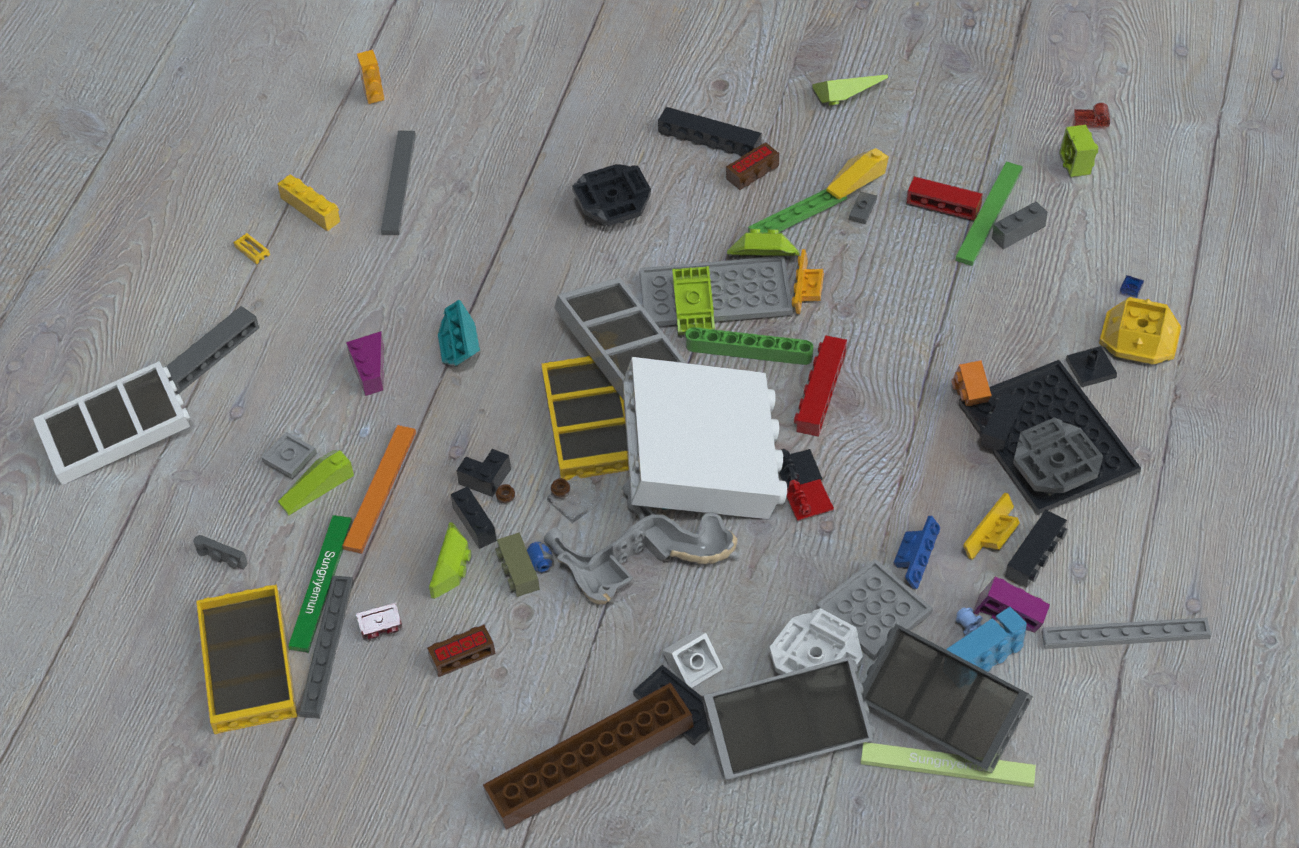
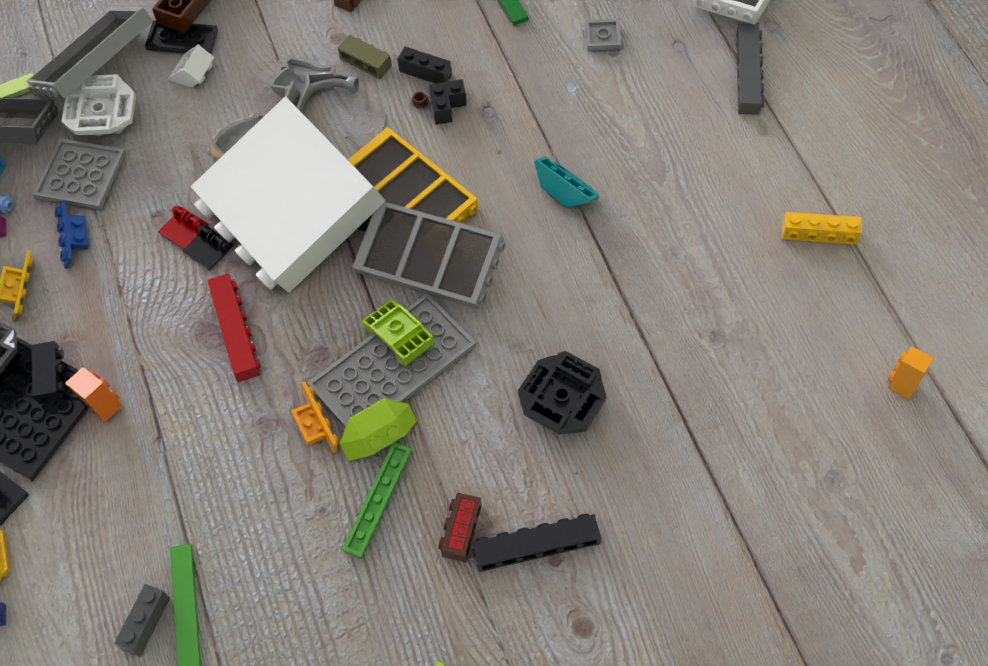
camera: 145 degrees right, 10 degrees up
(264, 251) = (821, 170): yellow tile -> none
(319, 479) = (565, 34): lime wedge -> none
(368, 360) = (618, 126): magenta wedge -> none
(379, 489) = (516, 55): orange tile -> none
(398, 183) = (775, 305): dark grey tile -> none
(450, 563) = (413, 31): lime wedge -> none
(540, 556) = (353, 67): blue head -> none
(560, 487) = (378, 115): reddish brown plate -> none
(749, 346) = (312, 325): bright green beam -> none
(858, 172) = (349, 585): yellow wedge -> none
(862, 207) = (320, 551): dark grey plate -> none
(943, 197) = (237, 605): red brick -> none

